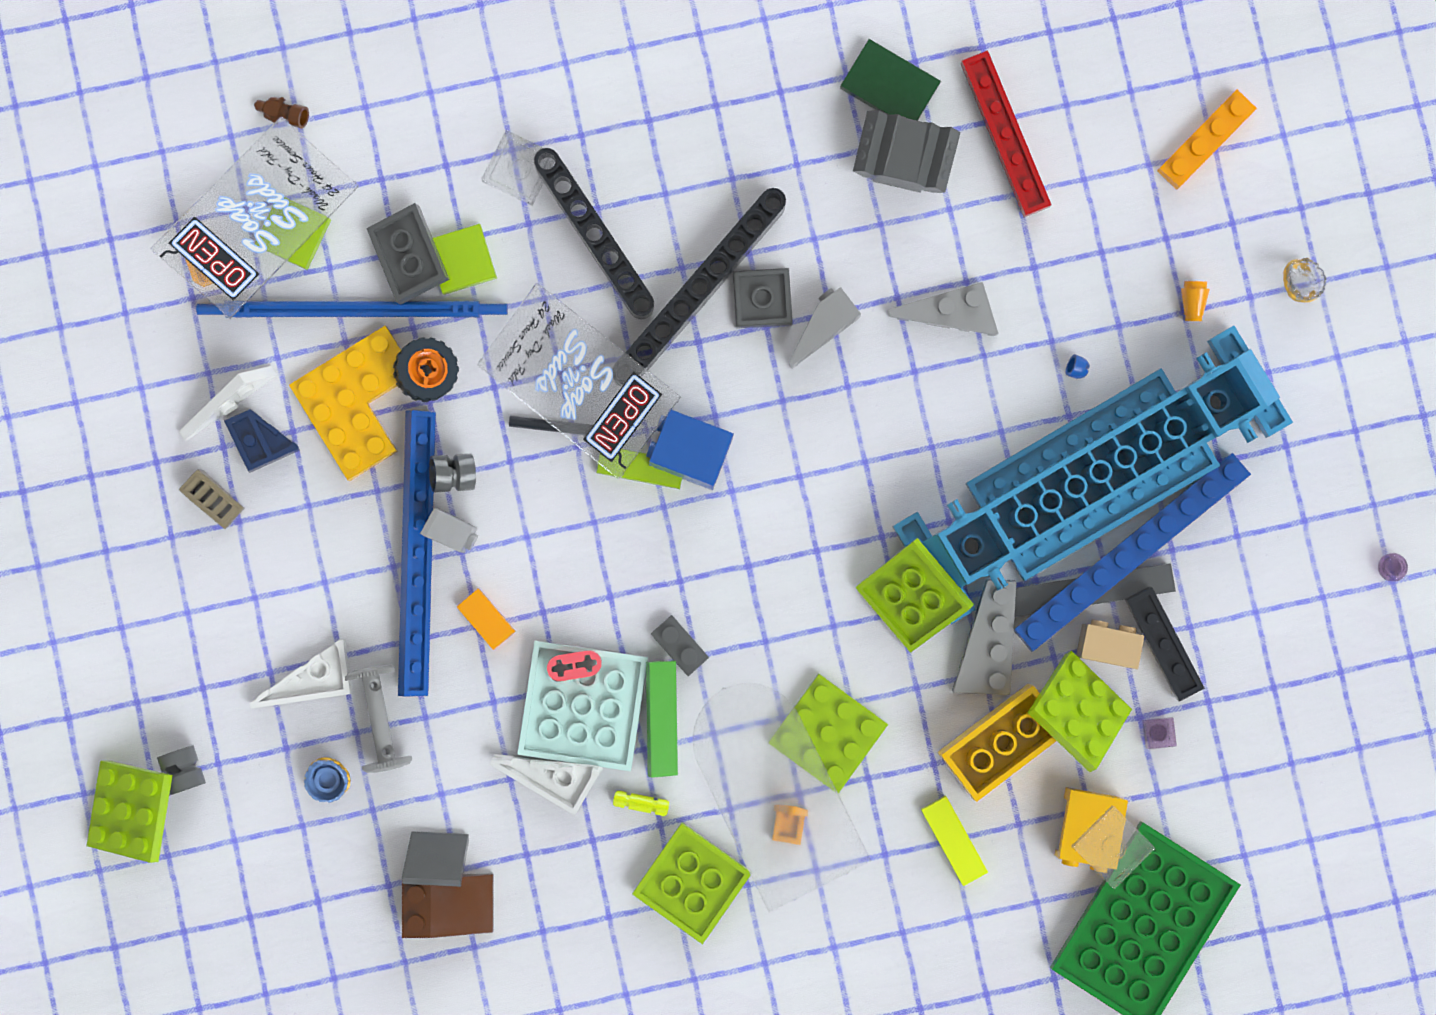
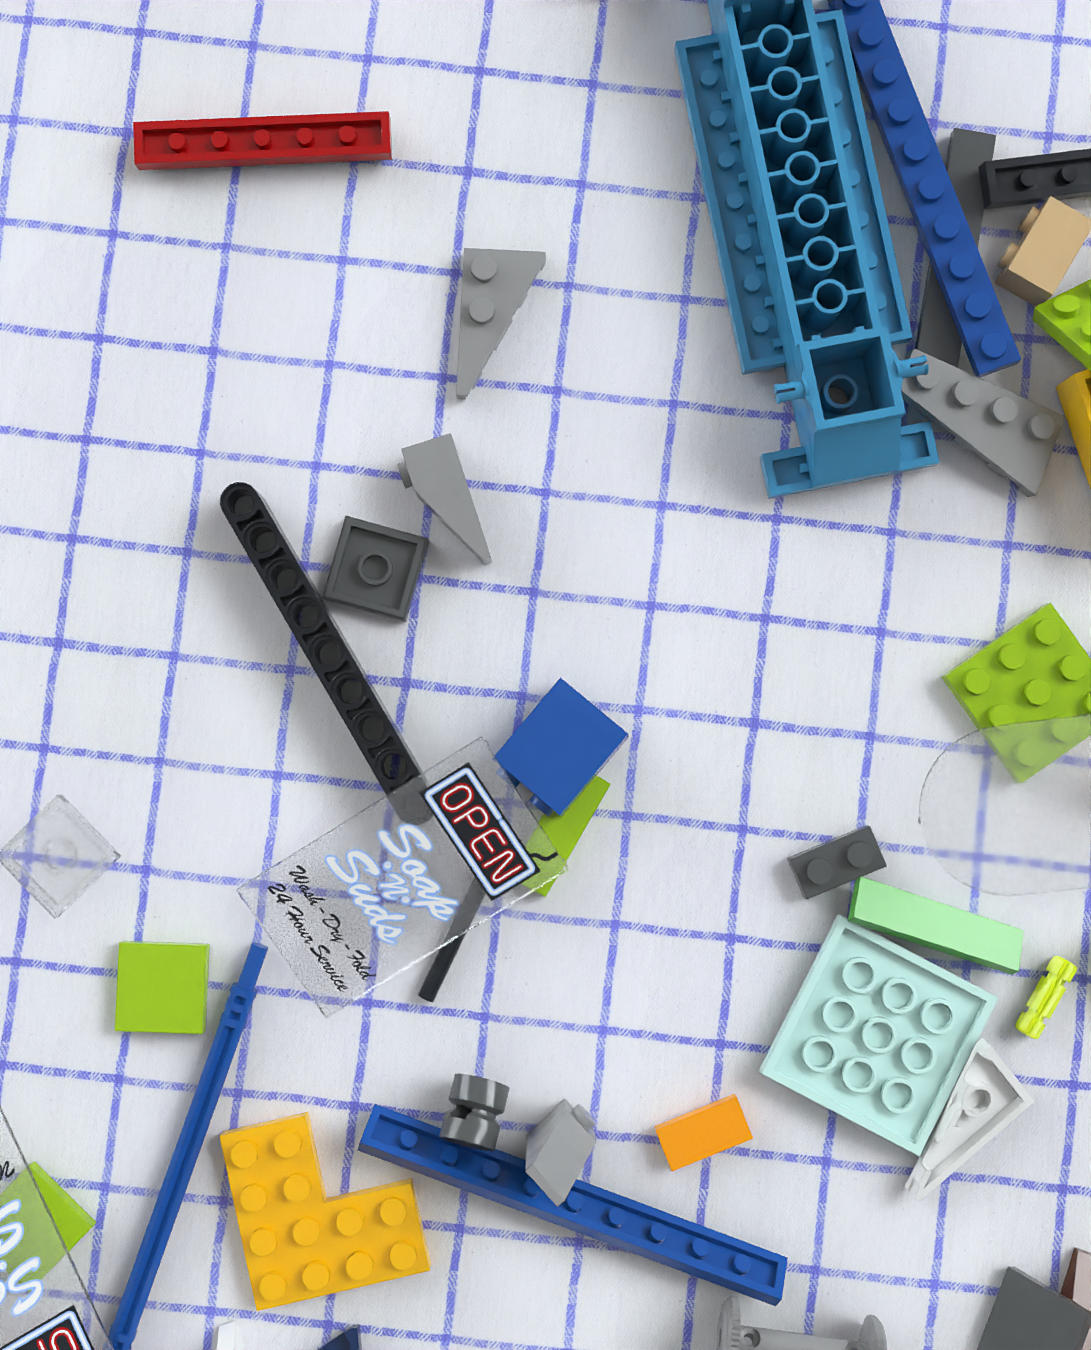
camera: 75 degrees left, 0 degrees up
(407, 253) = (125, 1066): dark grey plate -> none
(413, 379) = (315, 1124): black wheel -> none
(573, 658) = (830, 1029): coral beam -> none
(588, 221) = (172, 779): black beam -> none
(889, 82) = (132, 279): dark green tile -> none
(906, 152) = (238, 285): dark grey slope -> none
(914, 595) = (885, 498): lime plate -> none
(1077, 367) = (632, 159): blue hinge -> none

